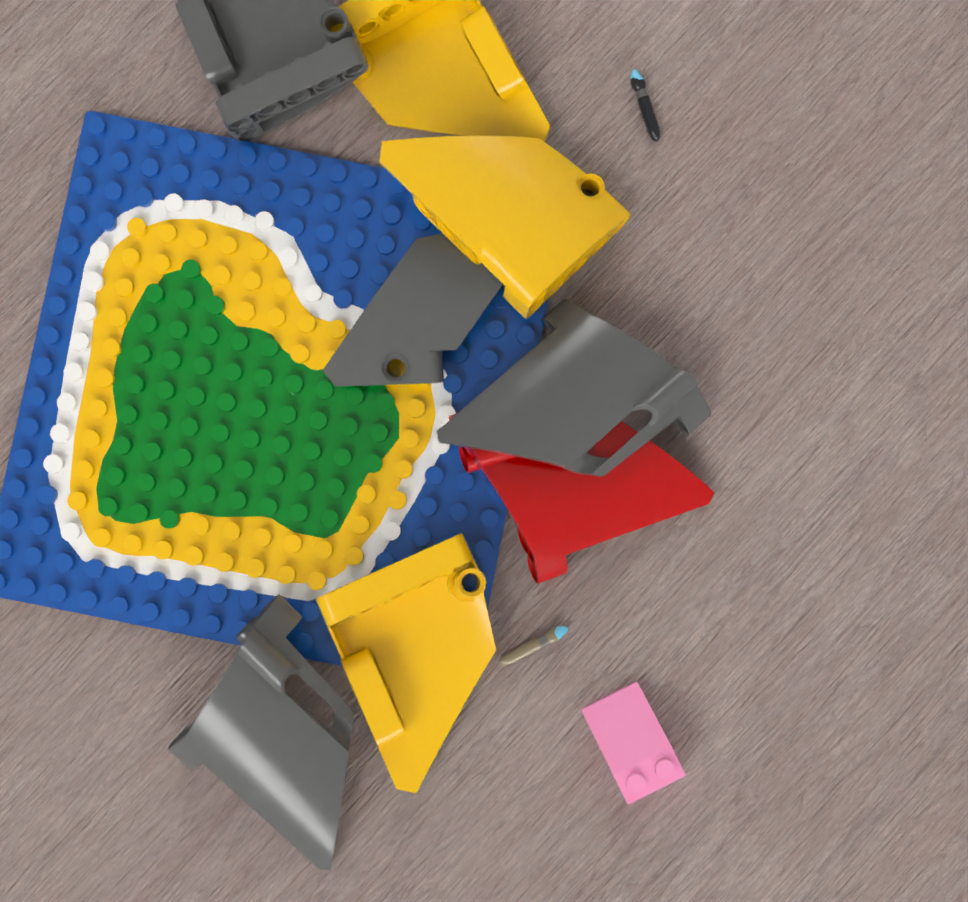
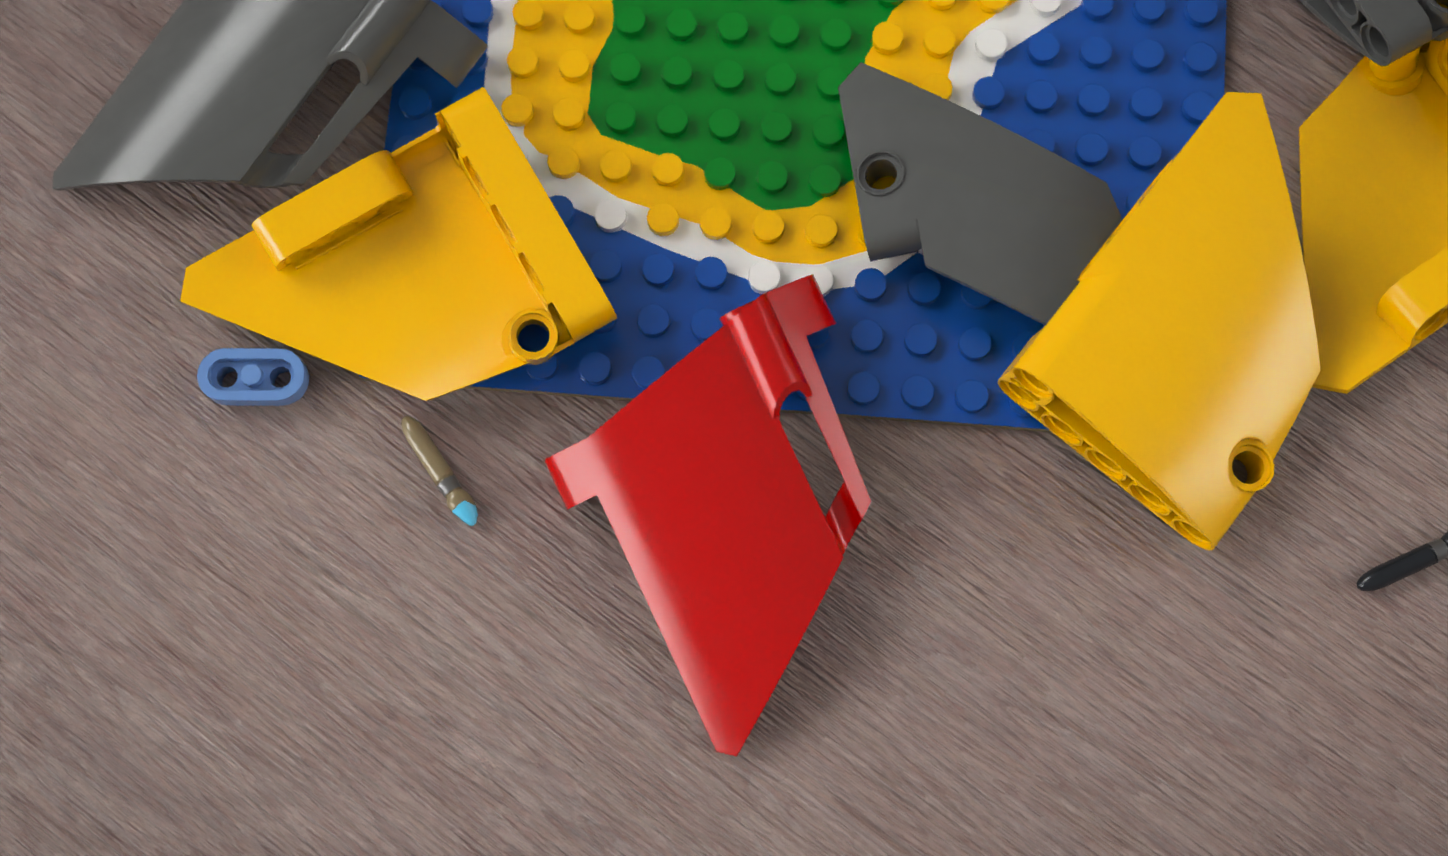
camera: 90 degrees right, 10 degrees down
(465, 751) = (256, 376): none -> medium blue plate
(574, 394) = (879, 474): dark grey panel -> none
(633, 742) = (284, 655): bright pink slope -> none

